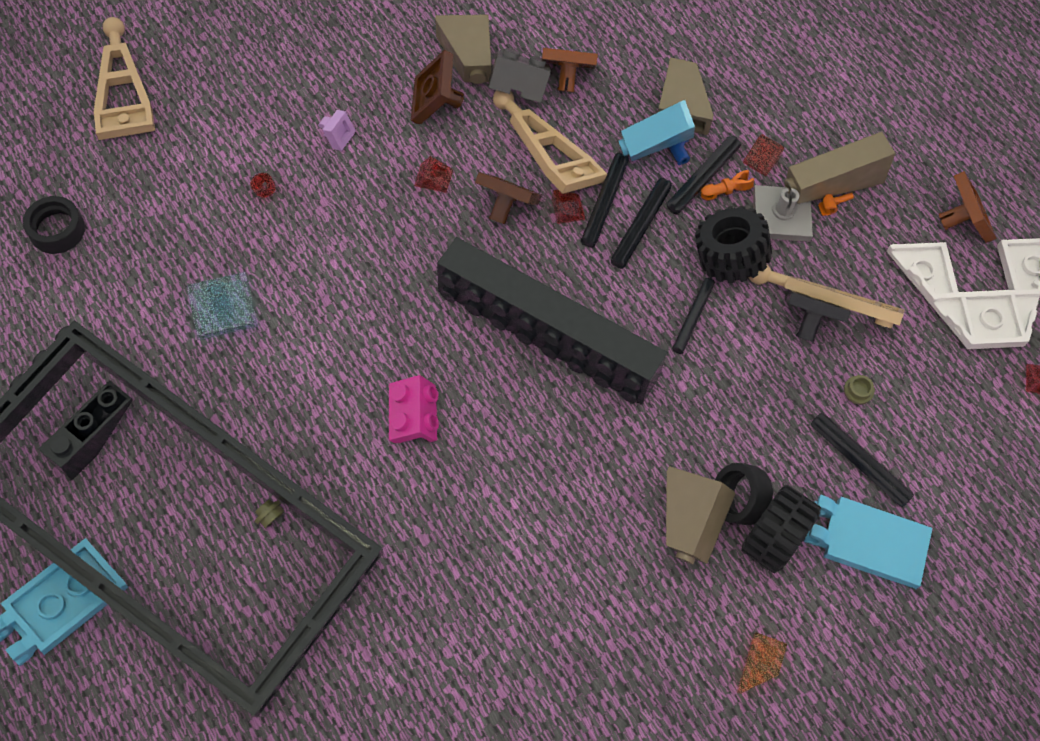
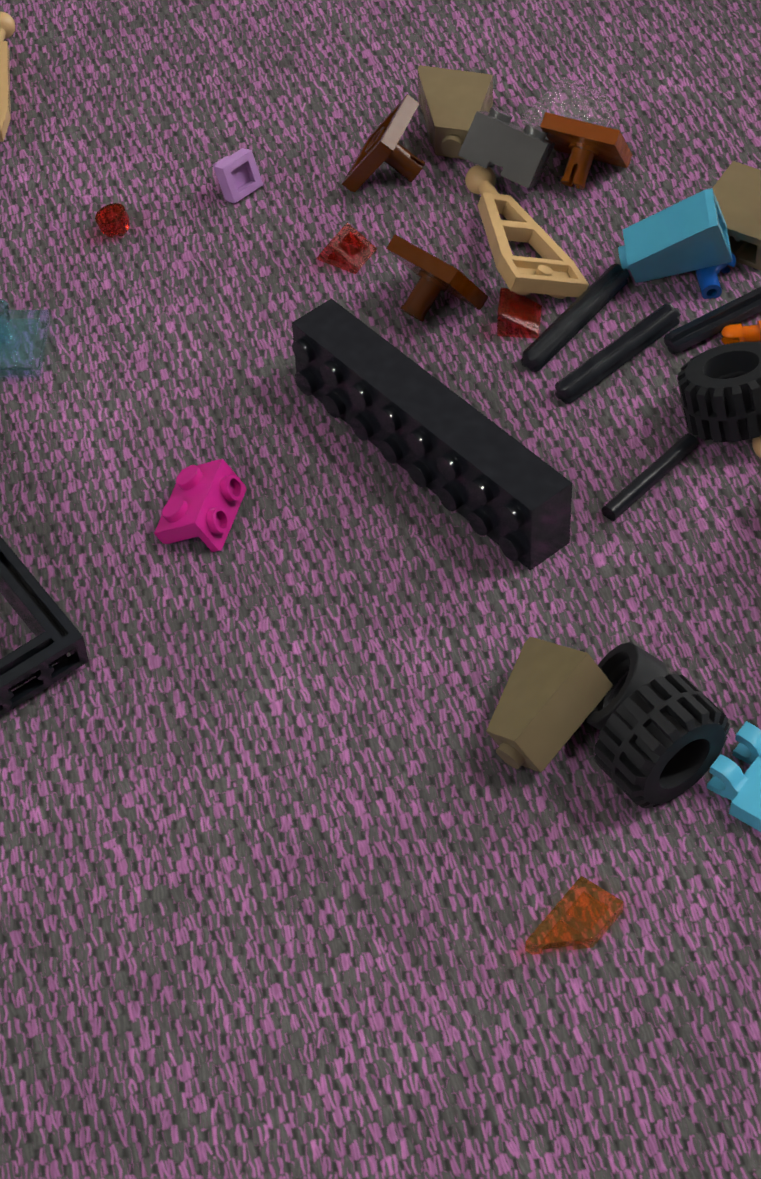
camera: 25 degrees right, 15 degrees down
(542, 29) = (572, 101): none -> clear tile

